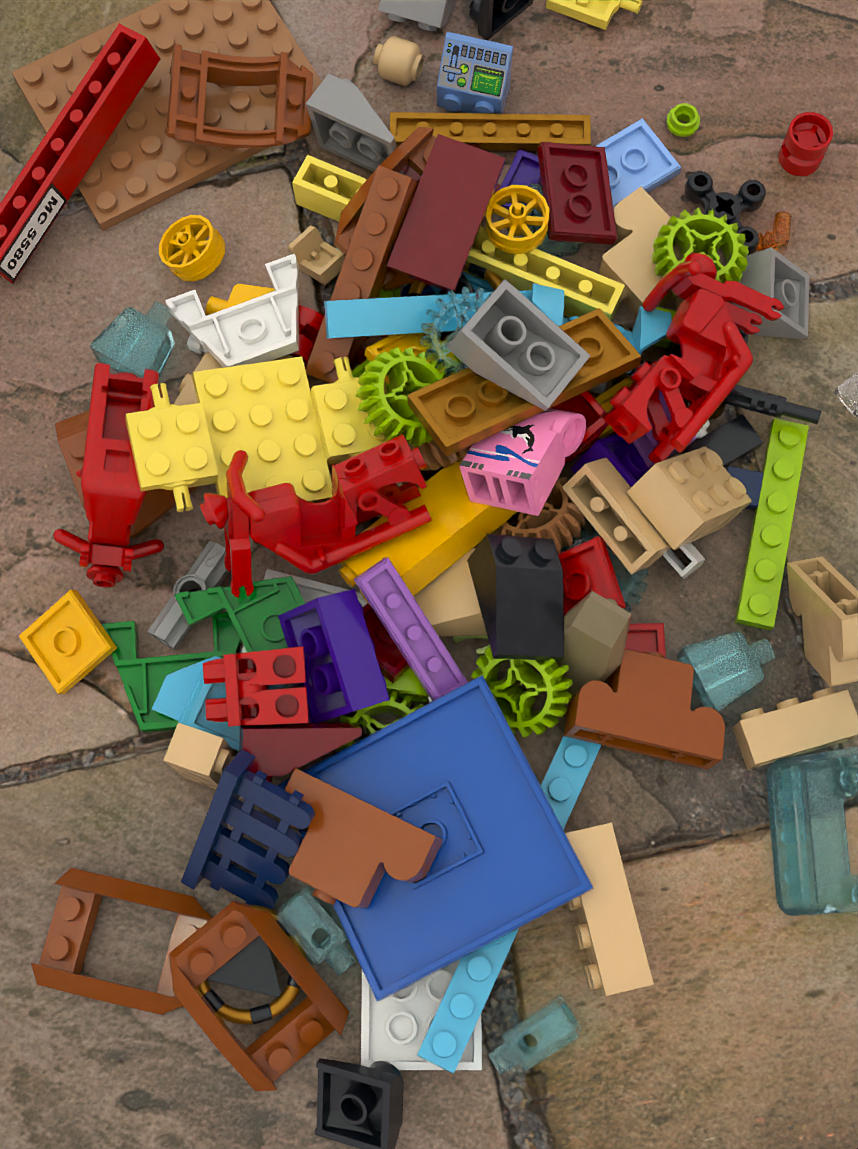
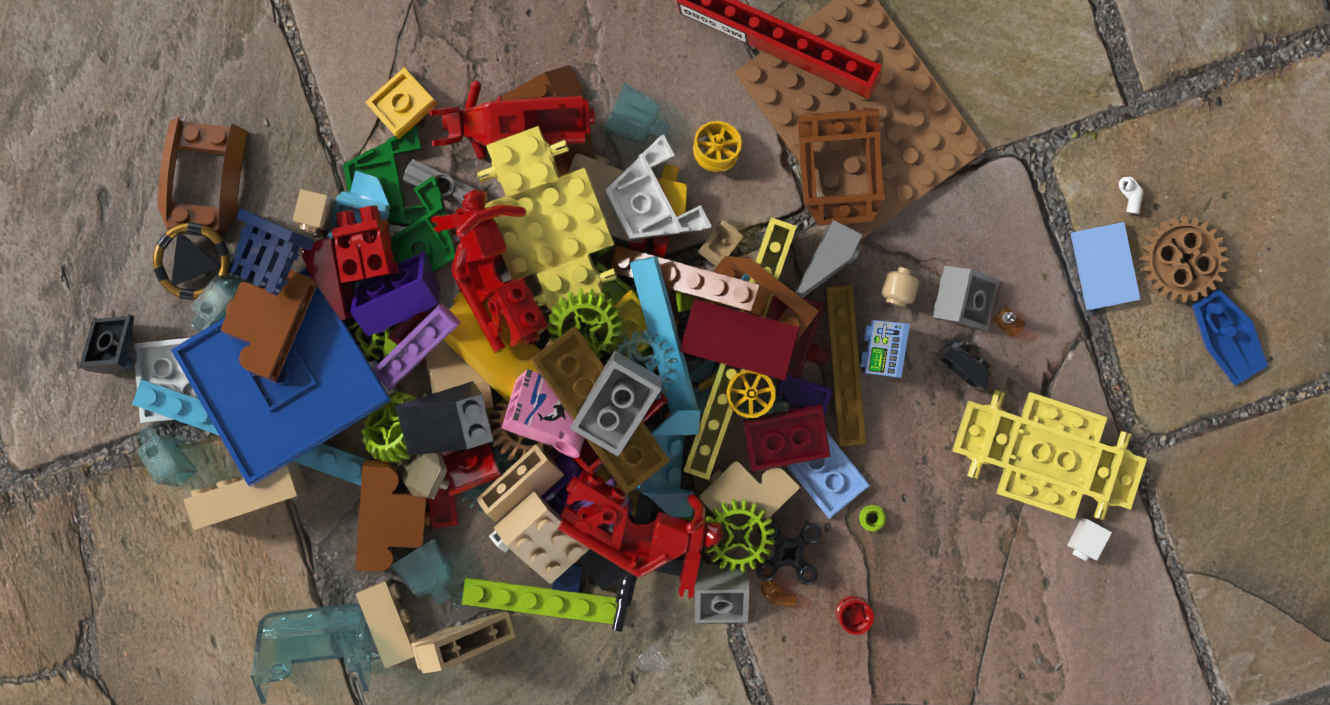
camera: 80 degrees right, 15 degrees up
(293, 1034) = (147, 293): dark orange wedge -> none

